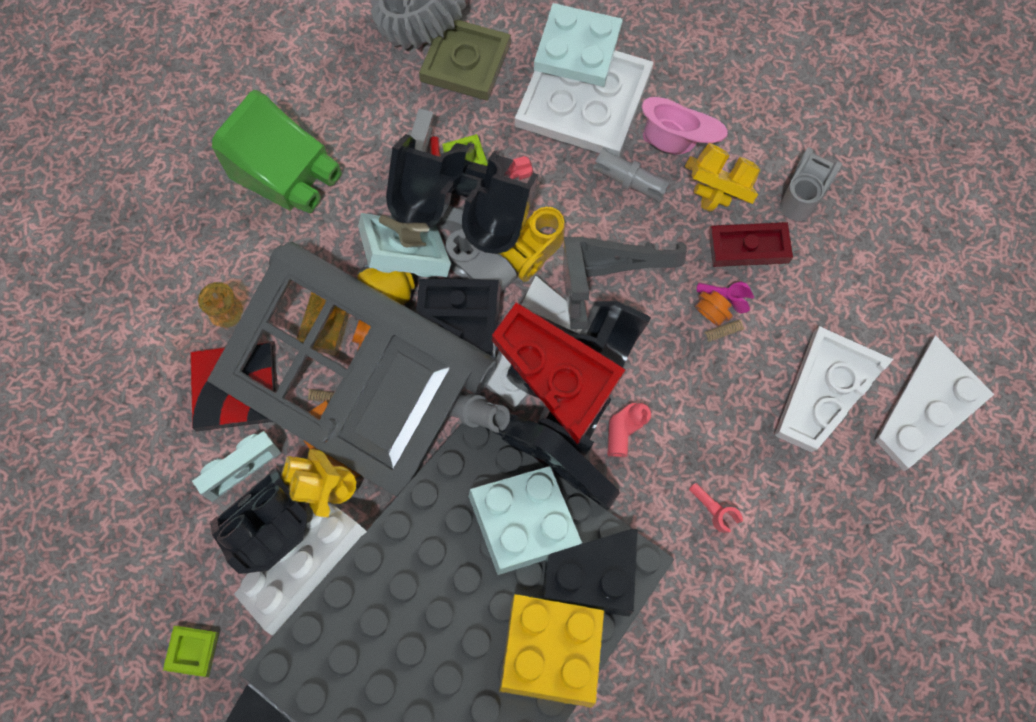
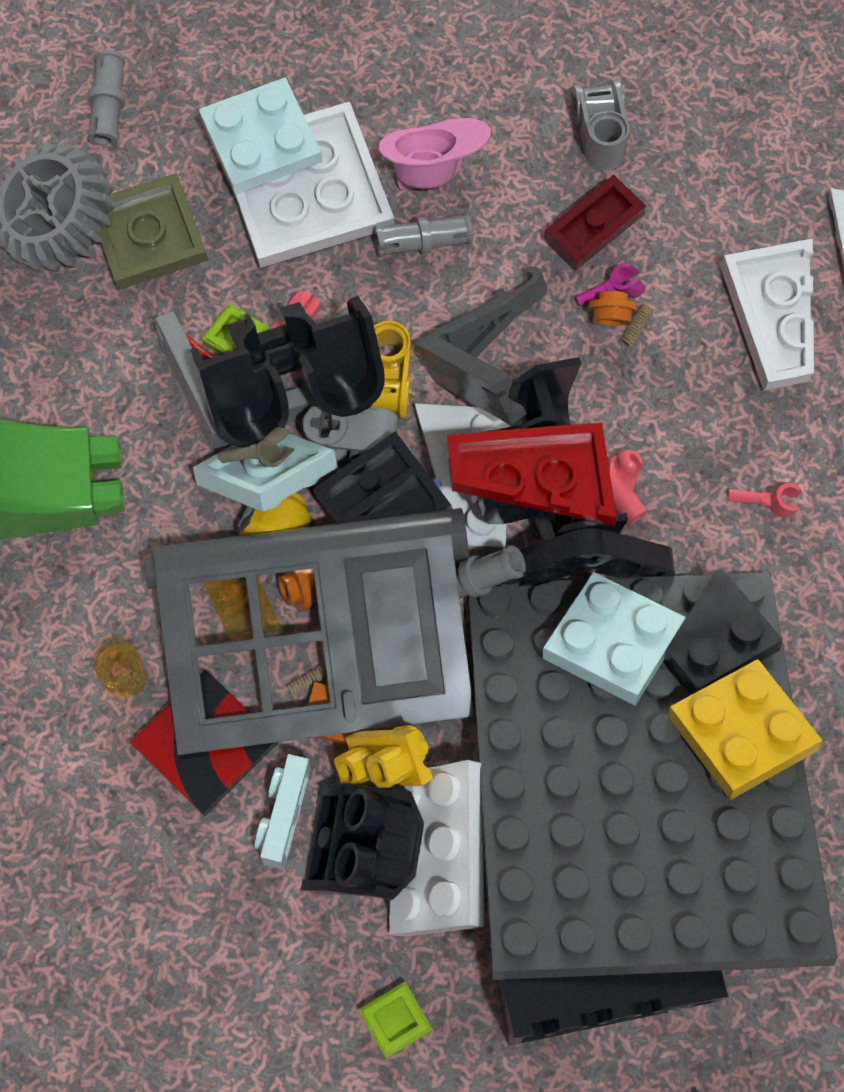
camera: 40 degrees left, 0 degrees up
(709, 171) = (516, 181): yellow hips -> none

